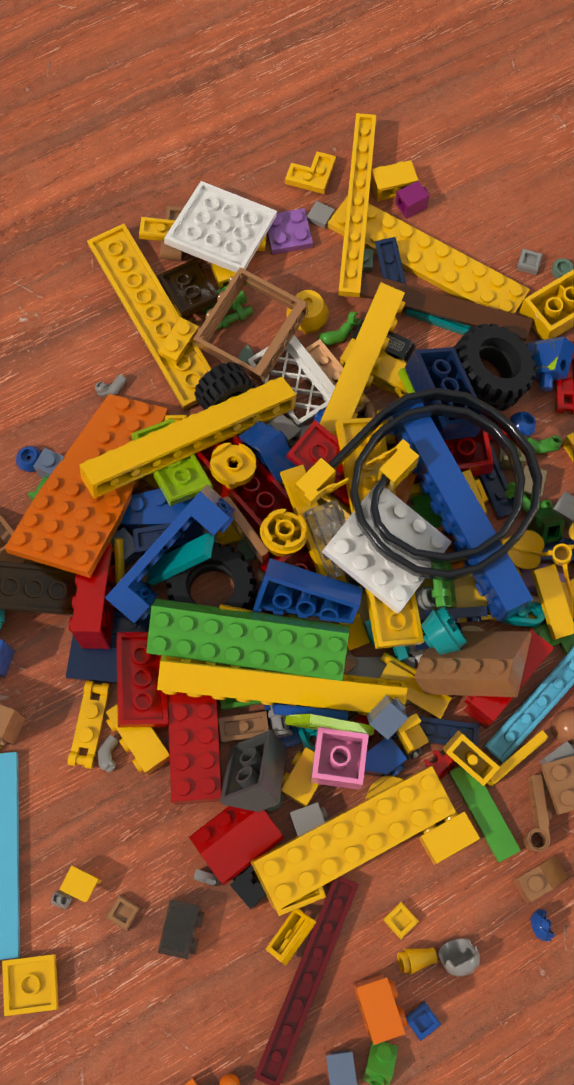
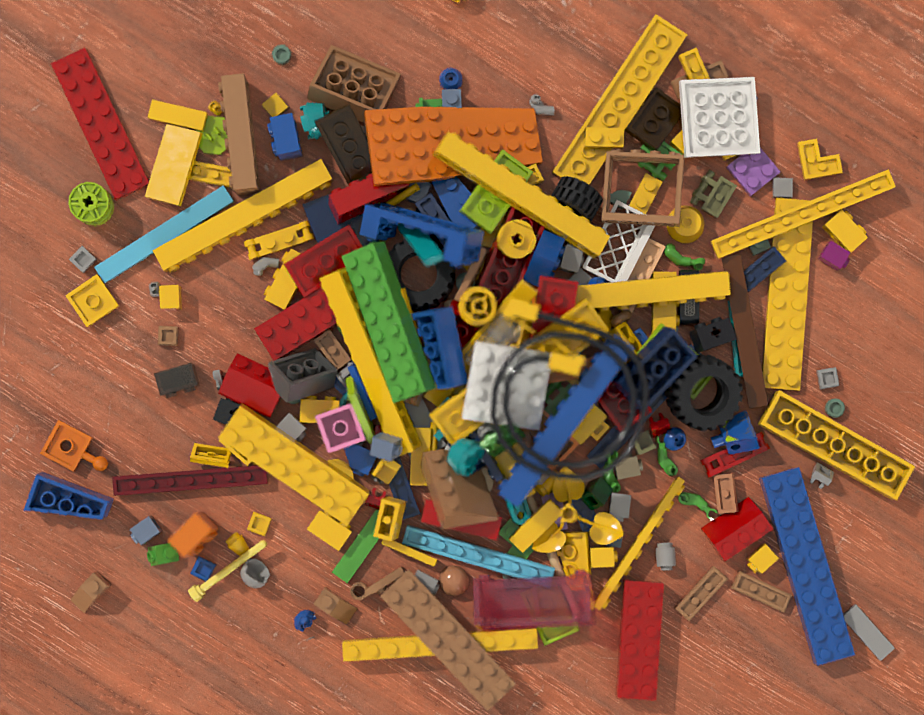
camera: 60 degrees right, 15 degrees up
(39, 753) = (242, 216): none -> yellow brick
(254, 333) = (645, 193): none -> yellow plate
(297, 270) = (717, 198): none -> olive plate
(433, 331) = (722, 334): none -> black brick
(448, 1043) = (197, 592): none -> light yellow piece

